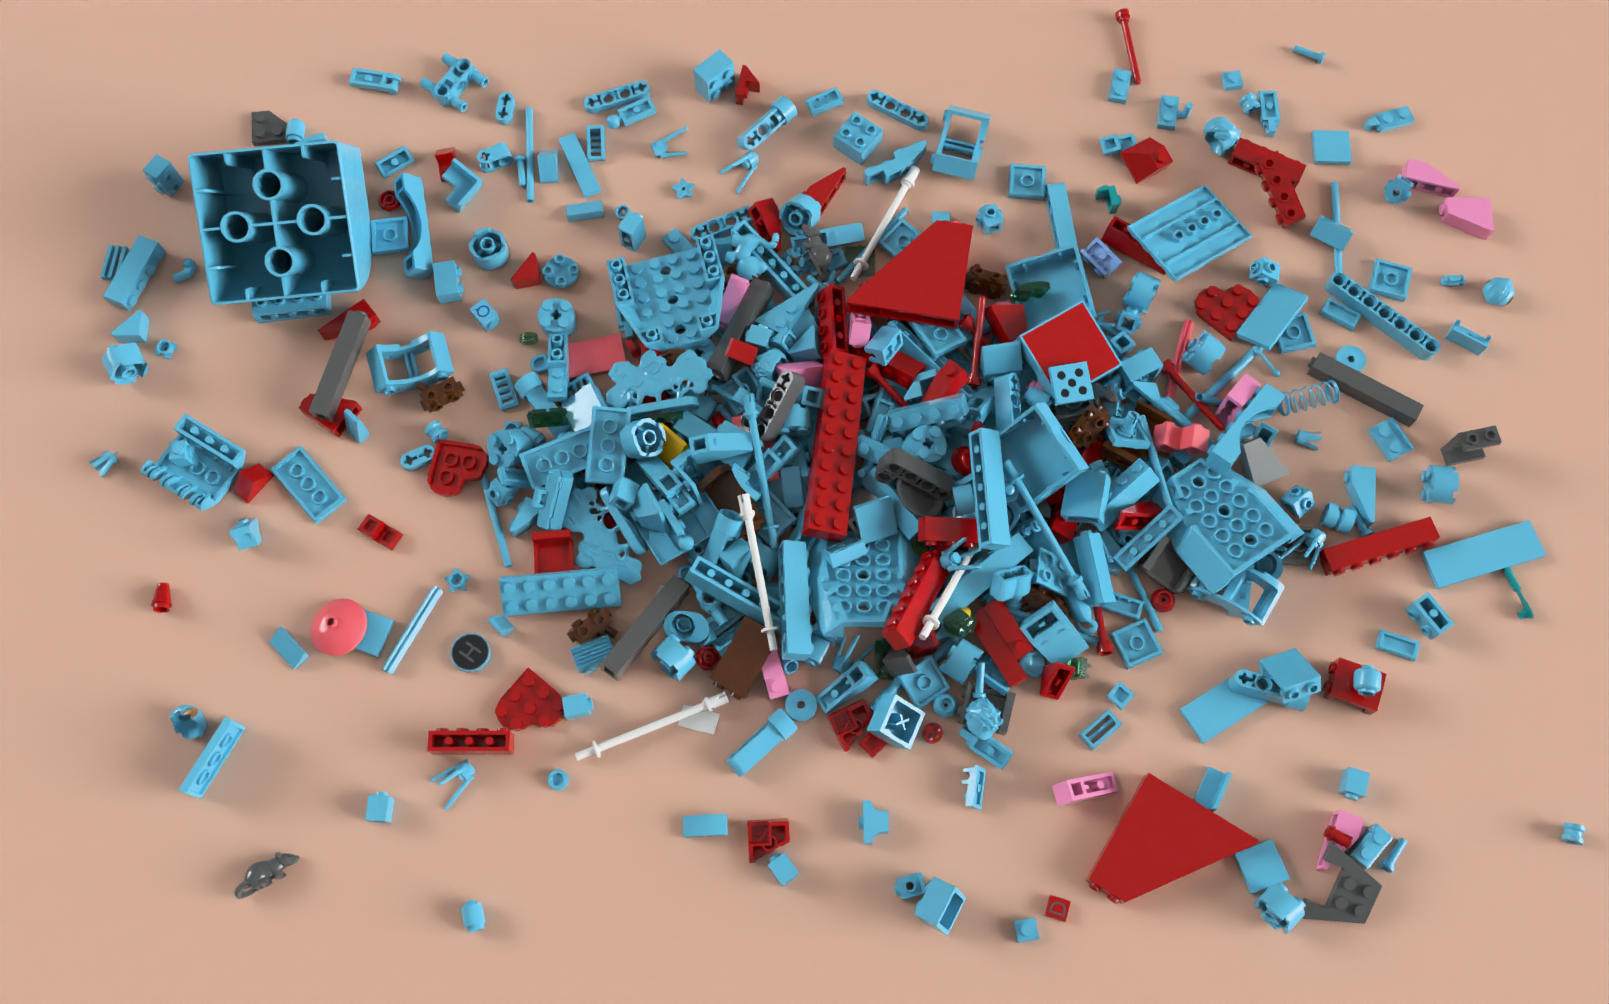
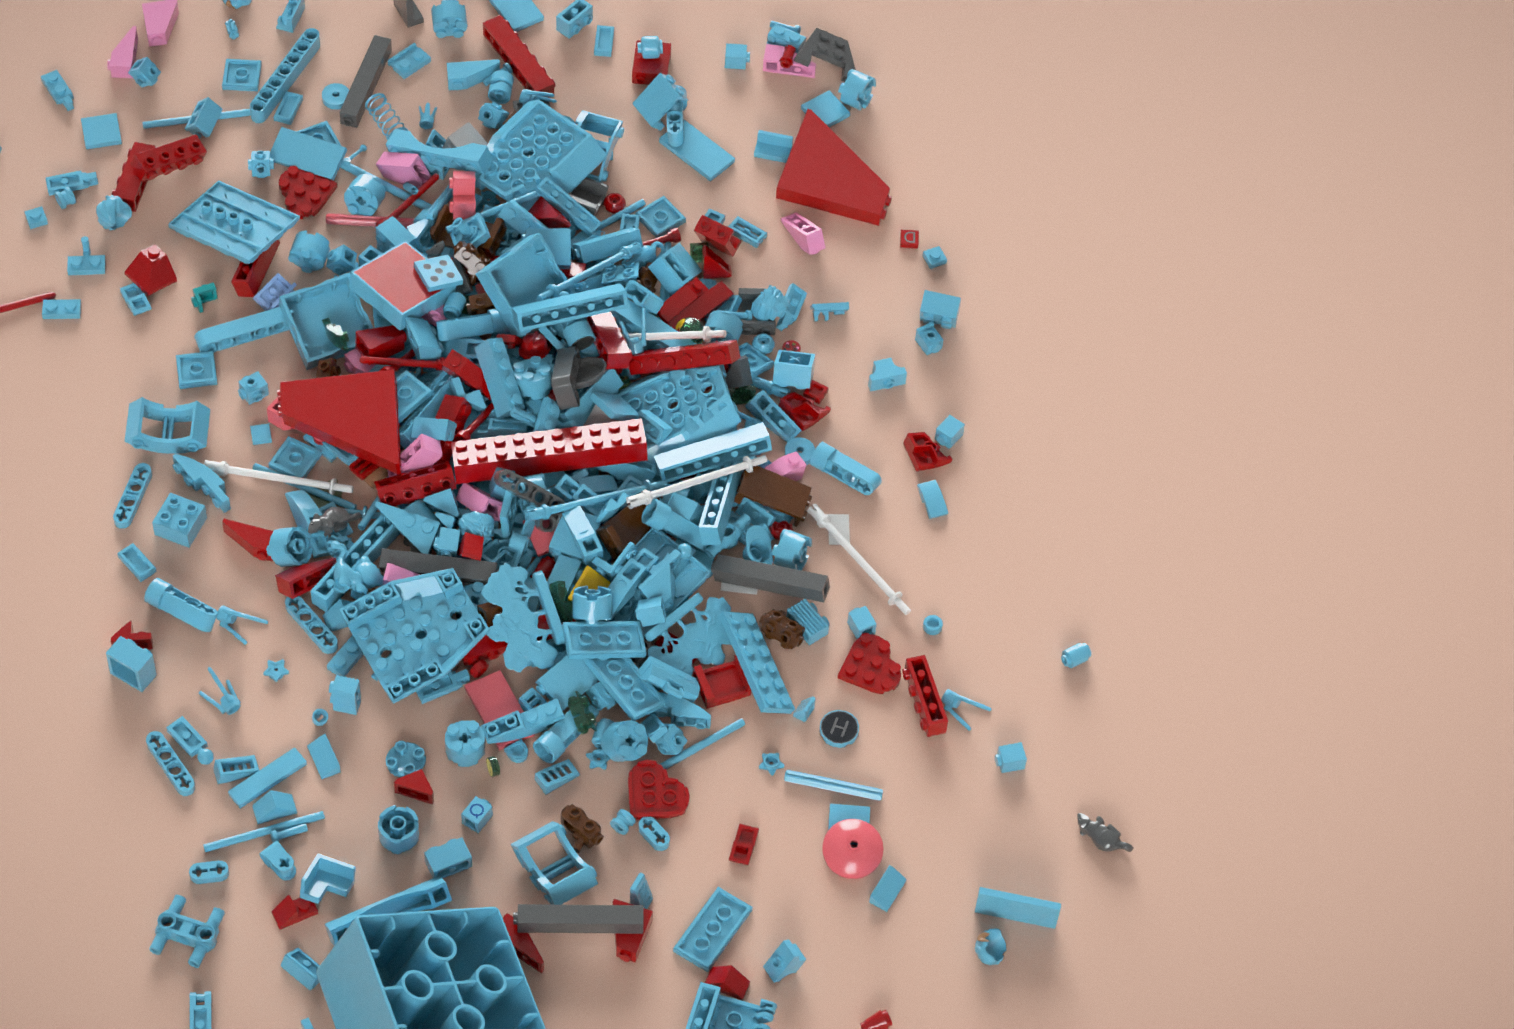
camera: 110 degrees left, 15 degrees down
(1085, 688) = (717, 235): none -> red panel

